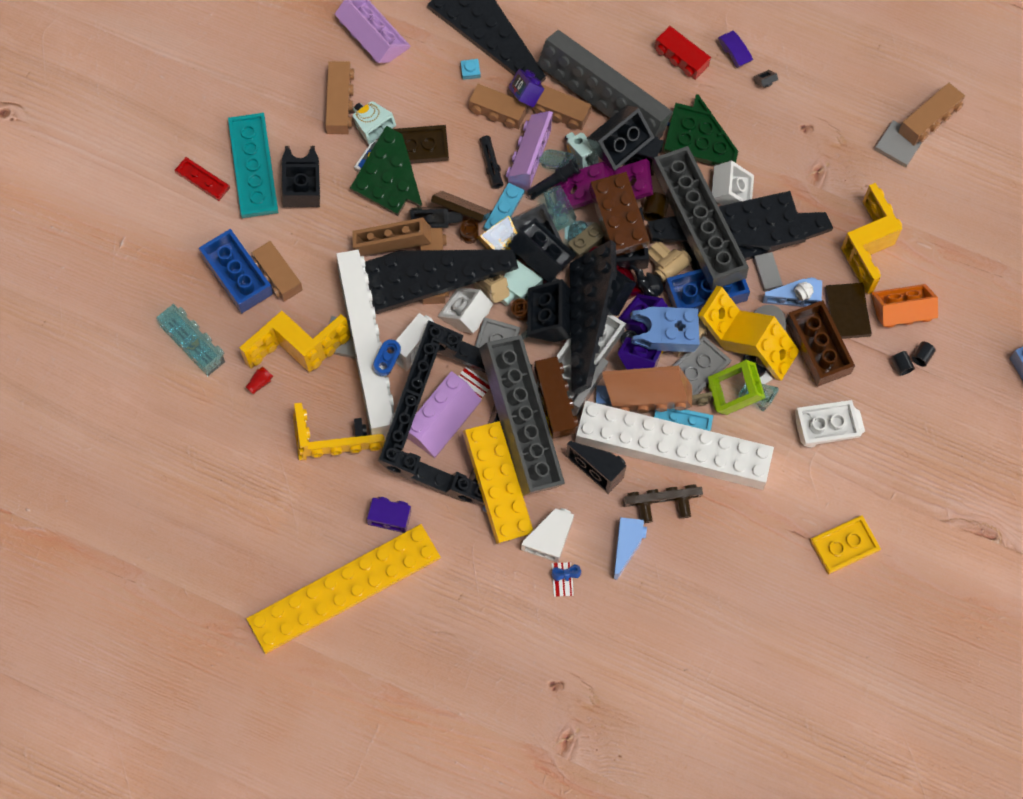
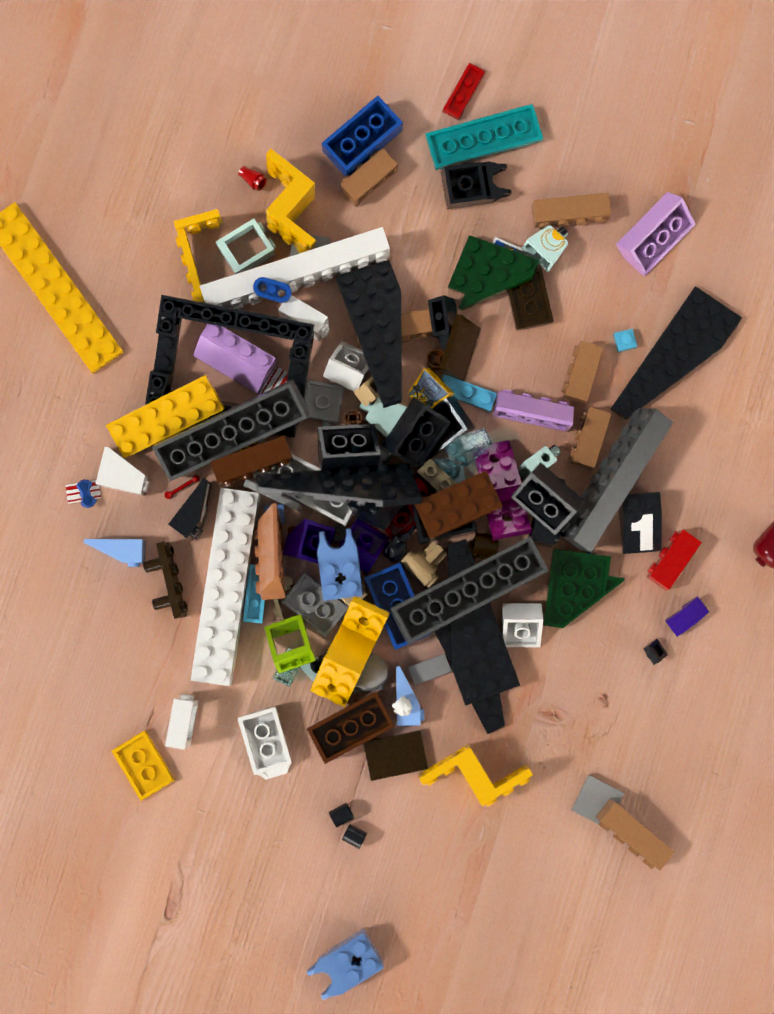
camera: 85 degrees right, 15 degrees up
(190, 339) = (287, 106): clear light blue brick -> none
(336, 410) = (254, 261): none -> light aqua window
(360, 429) = (209, 277): black plate -> none
(389, 514) = (127, 319): dark purple brick -> none
(392, 237) = (413, 281): medium nougat brick -> none
(495, 179) = (518, 373): black pin -> none
(526, 87) = (603, 397): dark purple brick -> none
(554, 158) = (526, 441): clear light blue piece -> none
(560, 175) = (505, 443): black pin -> none
(575, 495) = (168, 495): none -> red hinge
(647, 73) = (641, 523): none -> black slope
(806, 495) = (182, 722): none -> white window
(905, 305) = (407, 814): orange slope -> none

